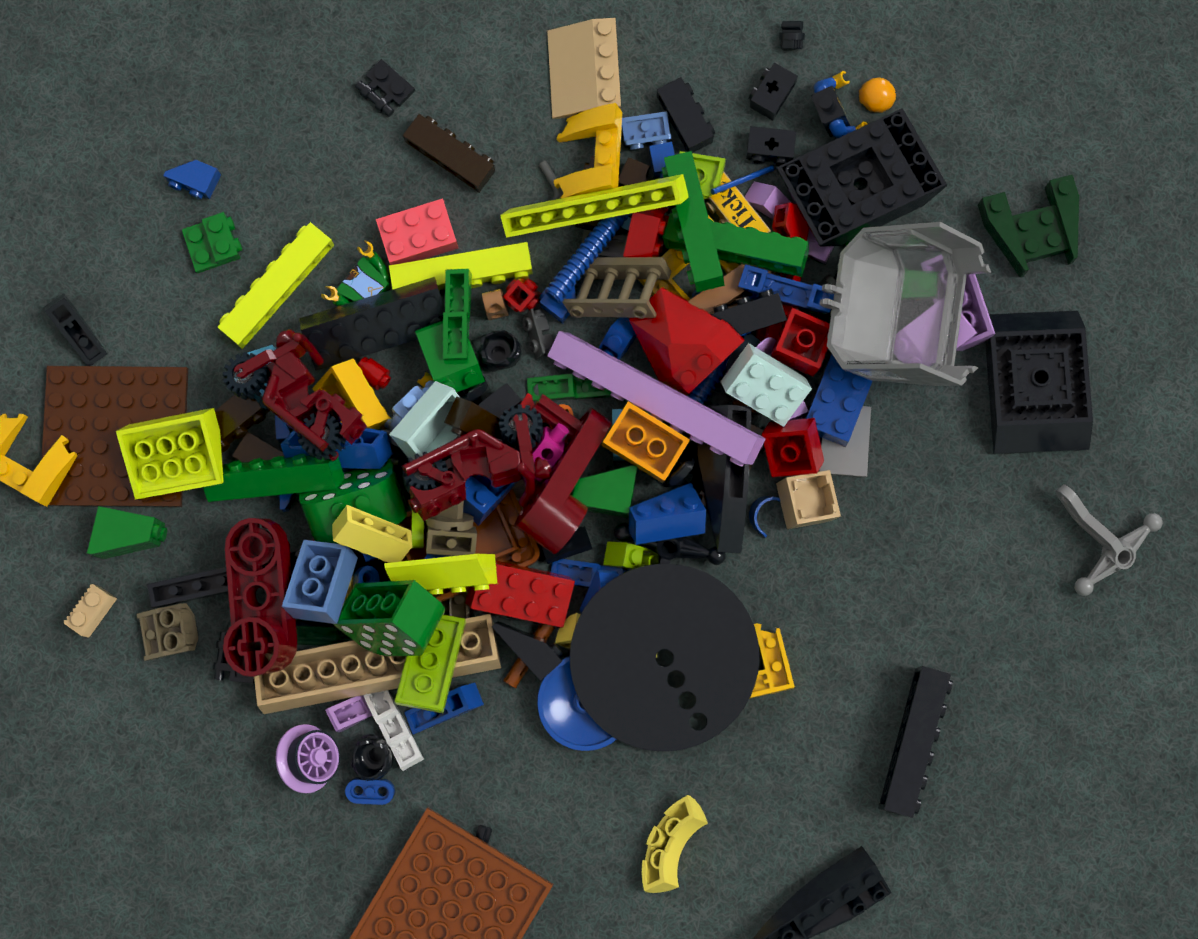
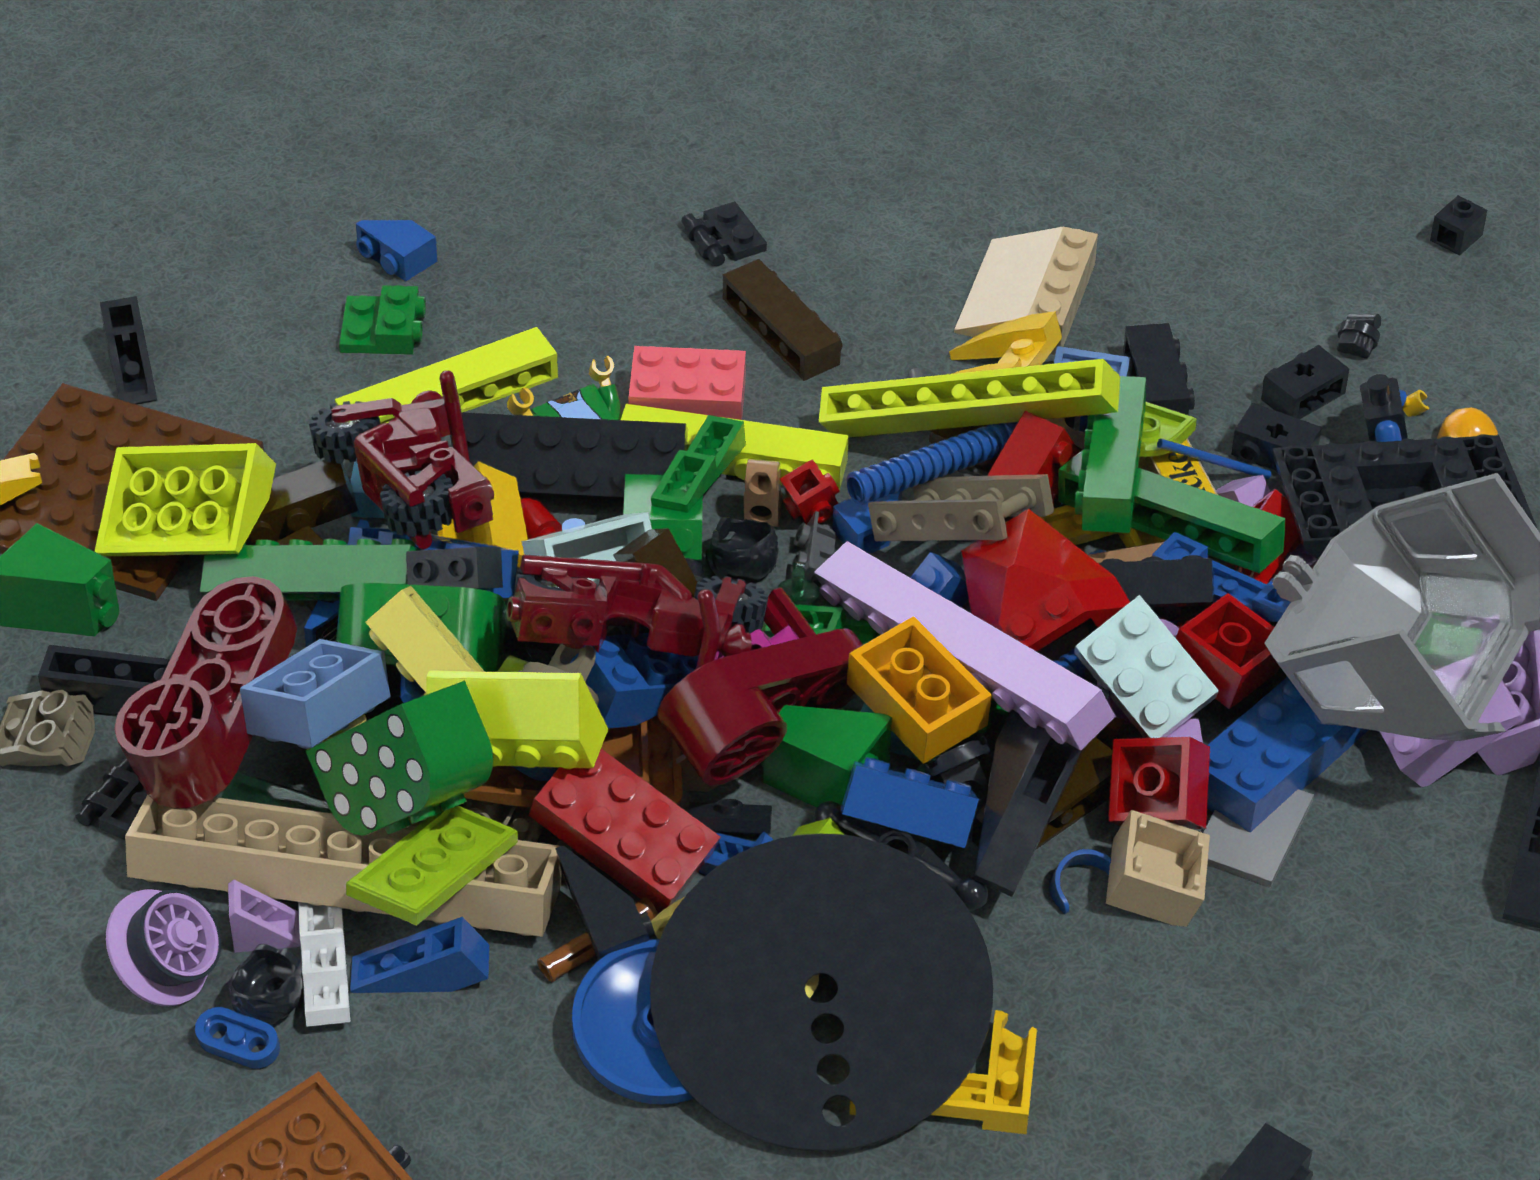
camera: 15 degrees right, 35 degrees down
(359, 466) = (456, 567): none -> black brick
(541, 366) = (798, 589): none -> clear green piece

